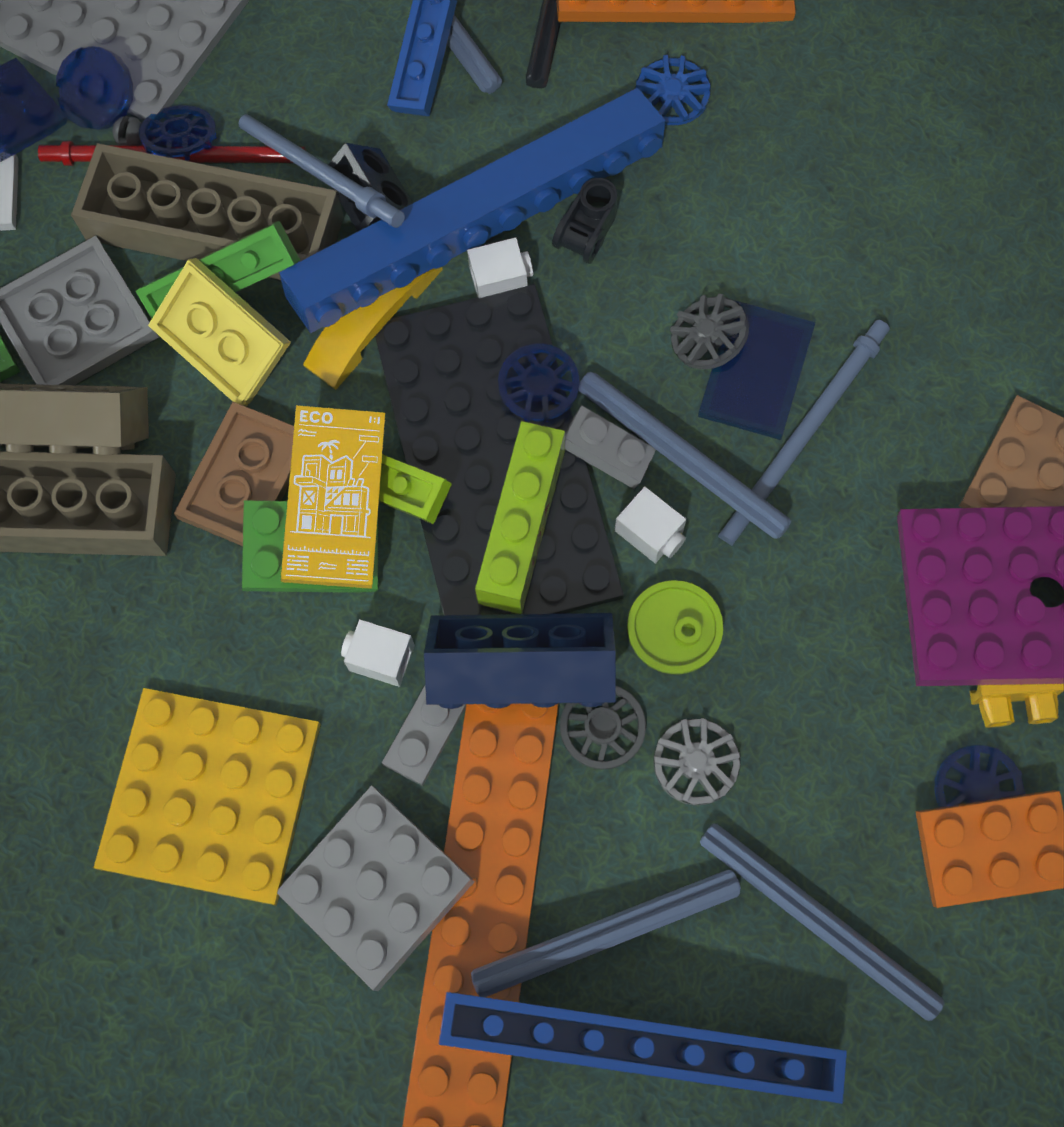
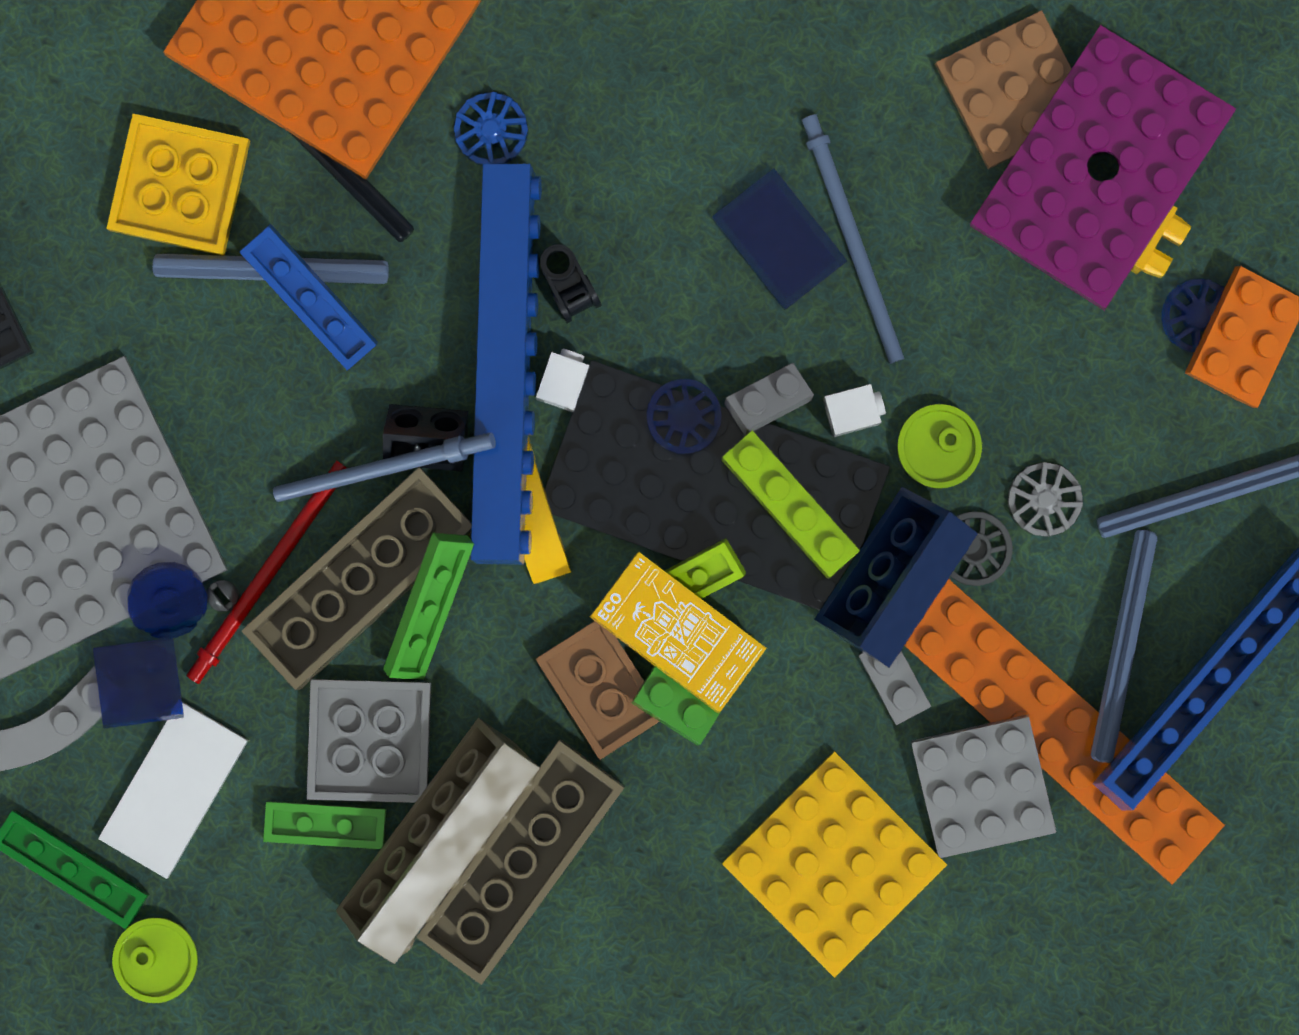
camera: 60 degrees left, 15 degrees up
(178, 132) = (255, 556): clear blue wheel -> none
(218, 333) = (475, 635): light yellow tile -> none
(377, 652) = (813, 676): white brick -> none
(685, 455) = (812, 346): sand blue axle -> none
(709, 332) = (727, 255): dark grey wheel -> none

